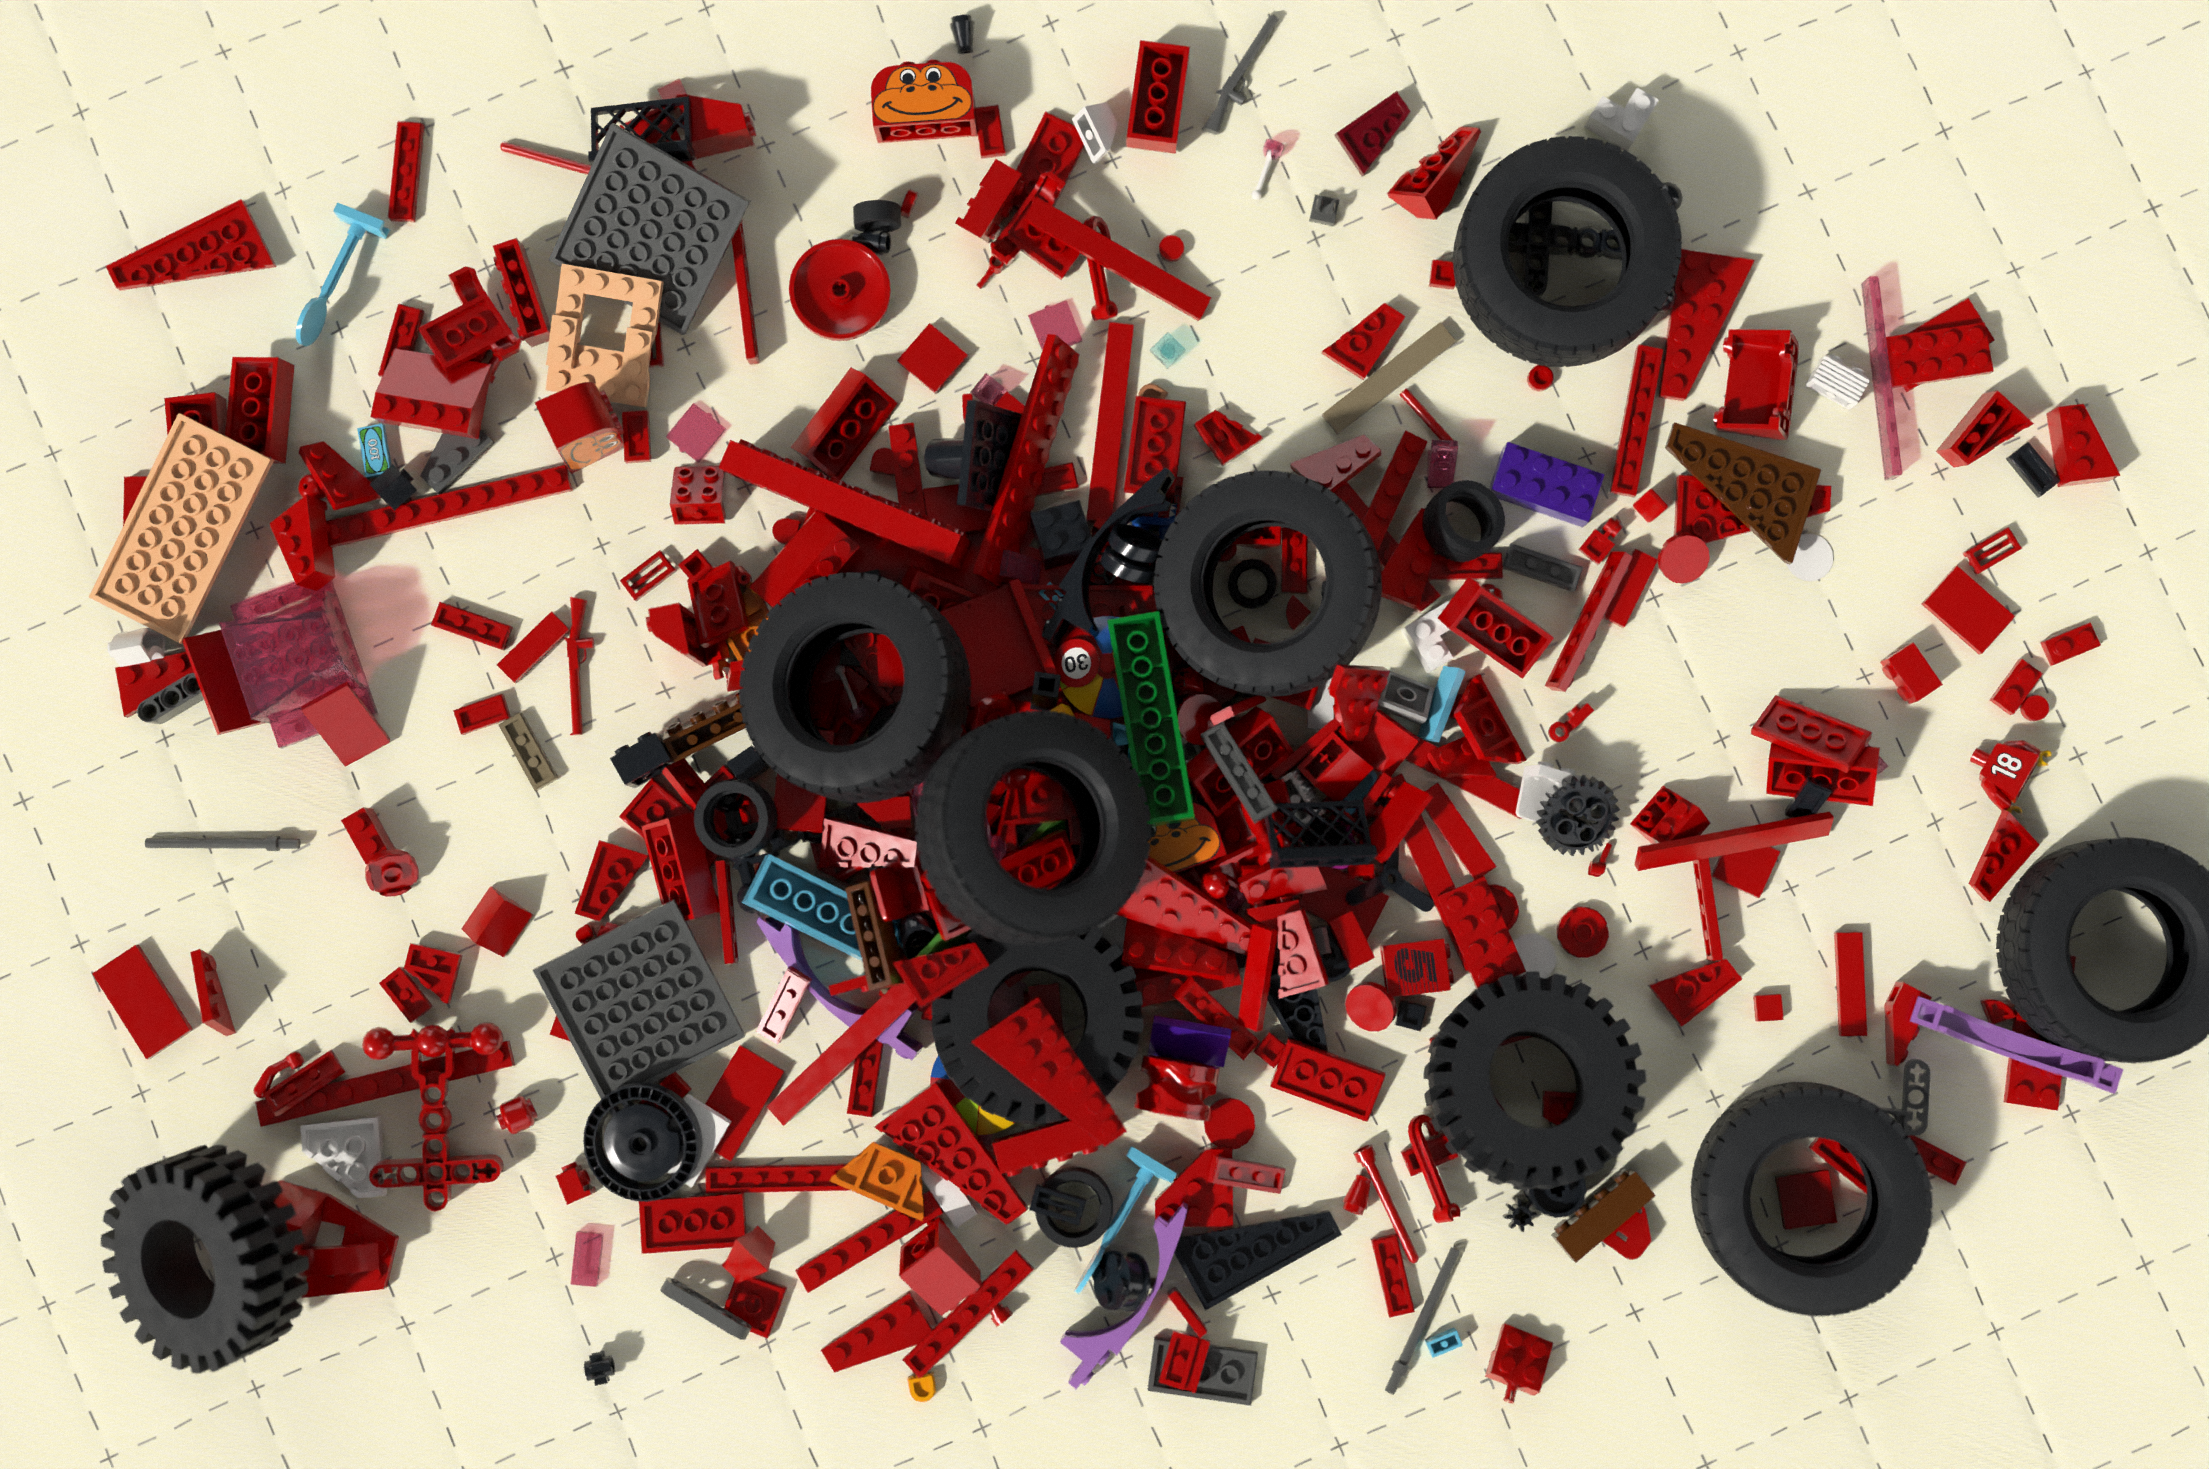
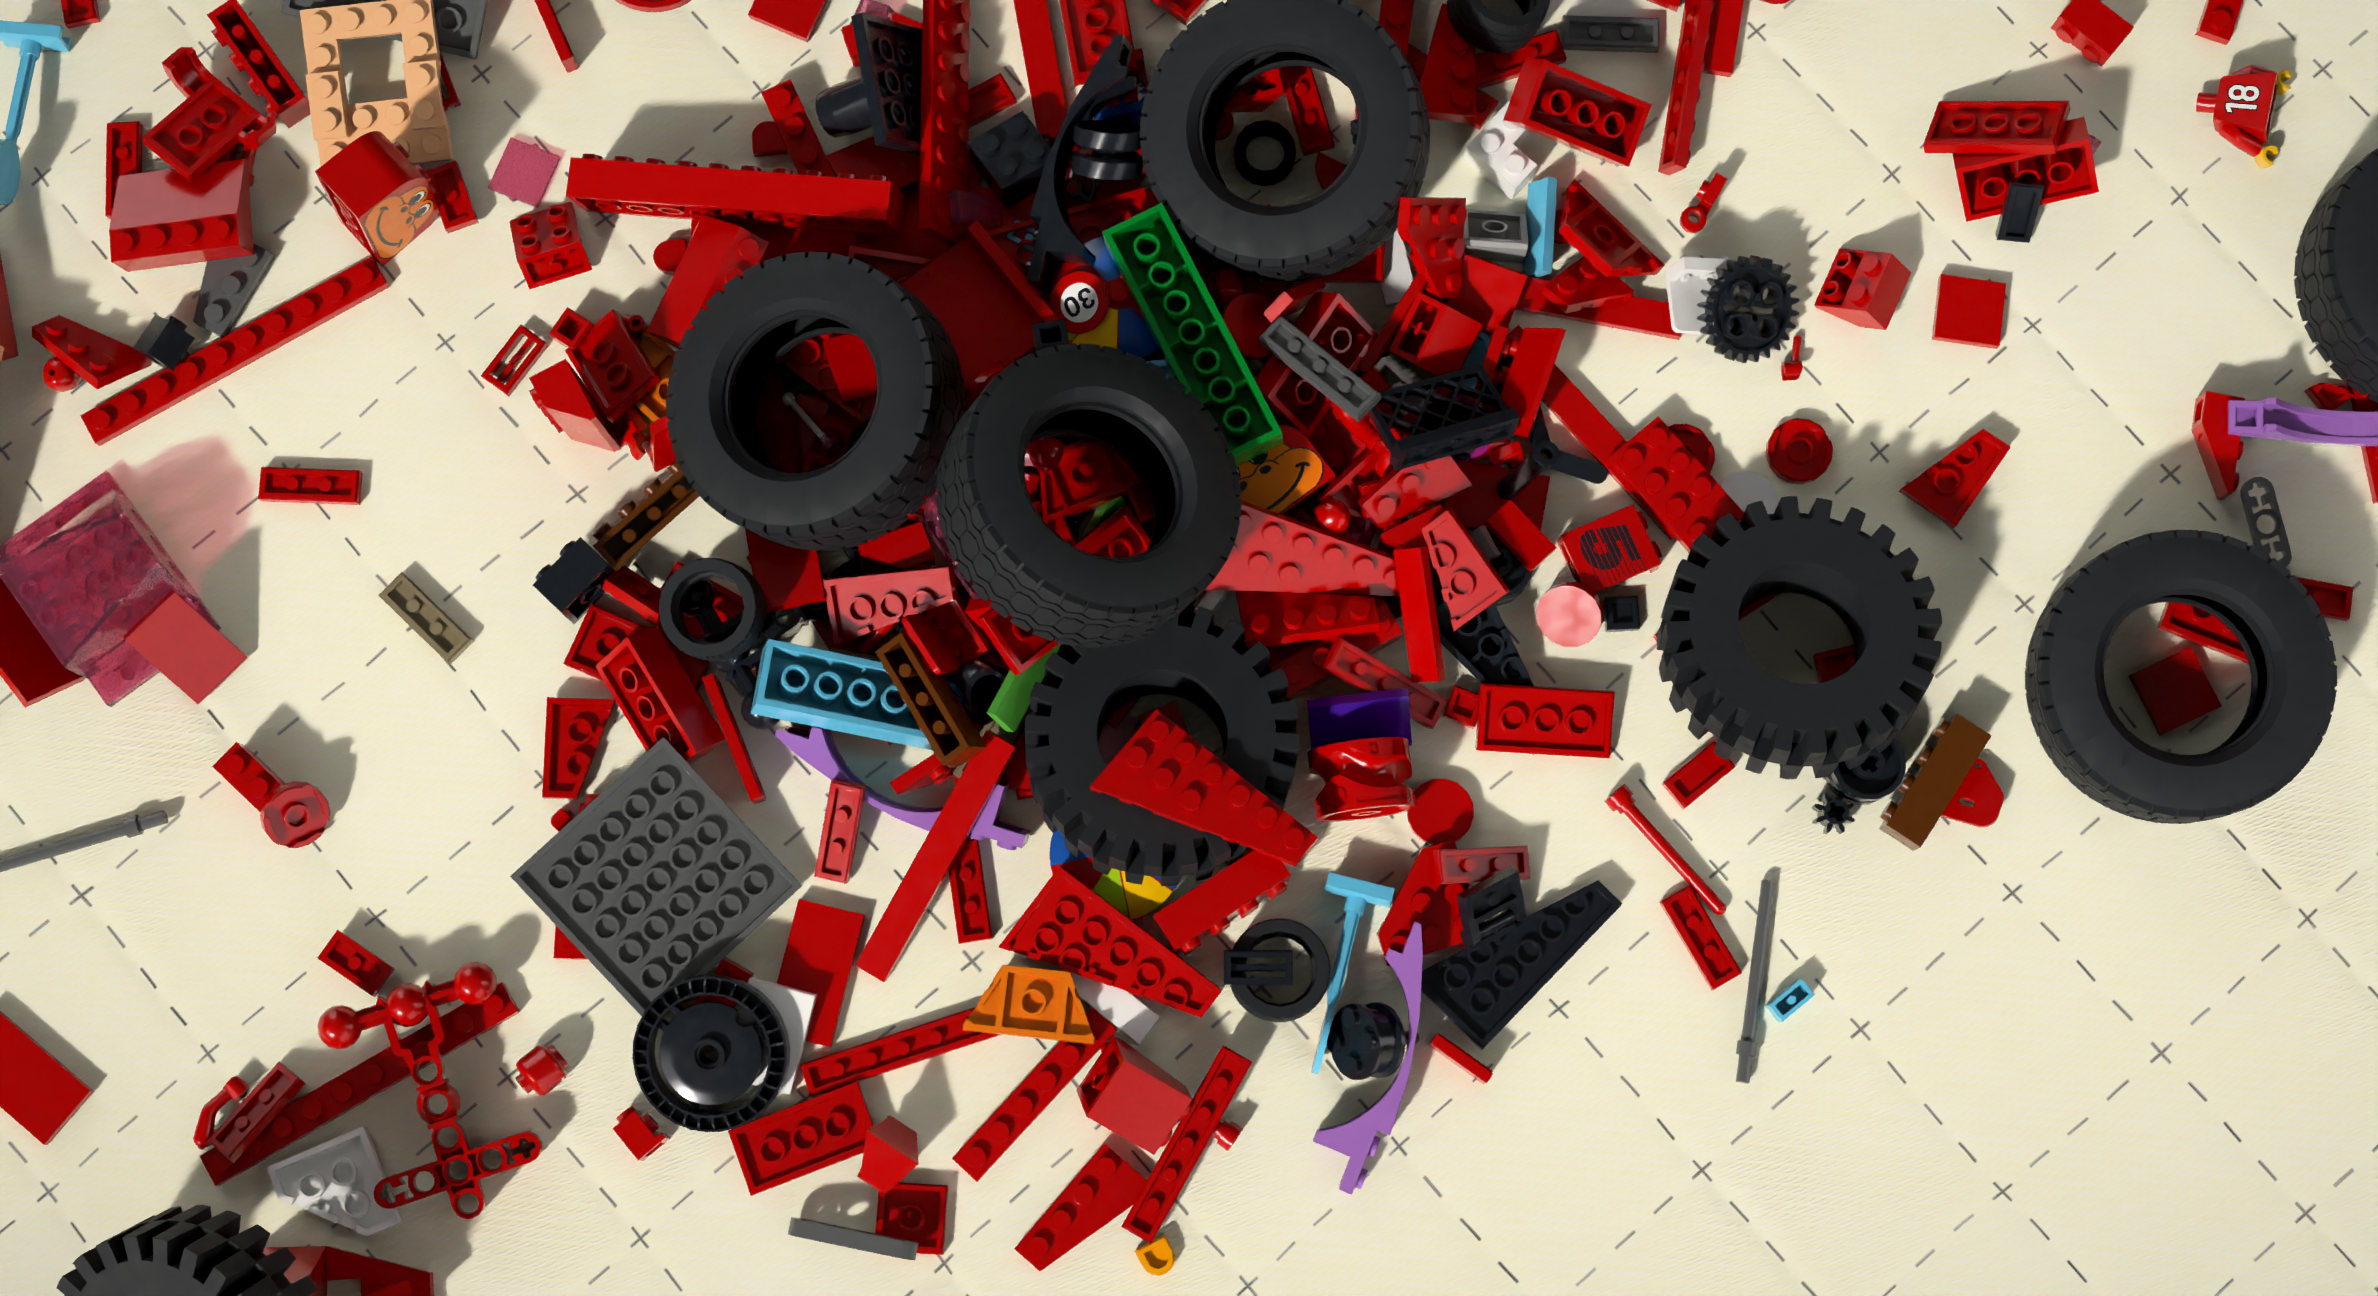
camera: 20 degrees left, 5 degrees down
(210, 994) = (104, 1034): red wing -> none
(304, 542) = (70, 439): red wedge -> none
(374, 450) = (126, 307): medium azure tile -> none
(434, 969) = (383, 920): red wing -> none
(482, 714) = (354, 589): red tile -> none
(496, 922) = (446, 839): red slope -> none
(533, 647) = (395, 488): red tile -> none
(578, 609) = (446, 469): red piece -> none
(587, 1258) = (682, 1226): clear pink tile -> none
(748, 764) = (709, 544): black brick -> none
(844, 424) = (706, 104): red slope -> none
(940, 972) = (1025, 716): red wing -> none
(1184, 1361) = (1476, 1119): red plate -> none
(1225, 1376) = (1502, 1128): dark grey tile -> none
(1243, 1208) = (1487, 899): none -> black plate
(1357, 1196) = (1626, 852): red cone -> none
(1444, 1210) = (1738, 835): red piece -> none
(1458, 833) = (1609, 378): red tile -> none
(1519, 1361) = (1890, 994): red plate -> none
(1707, 909) = (1941, 376): red tile -> none
(1733, 841) = (1945, 283): red tile -> none
(1768, 1007) = (2053, 474): red tile -> none
(1850, 984) = (2142, 416): red tile -> none
(2002, 856) = (2273, 209): red wing -> none
(2034, 708) = (2252, 27): red tile -> none

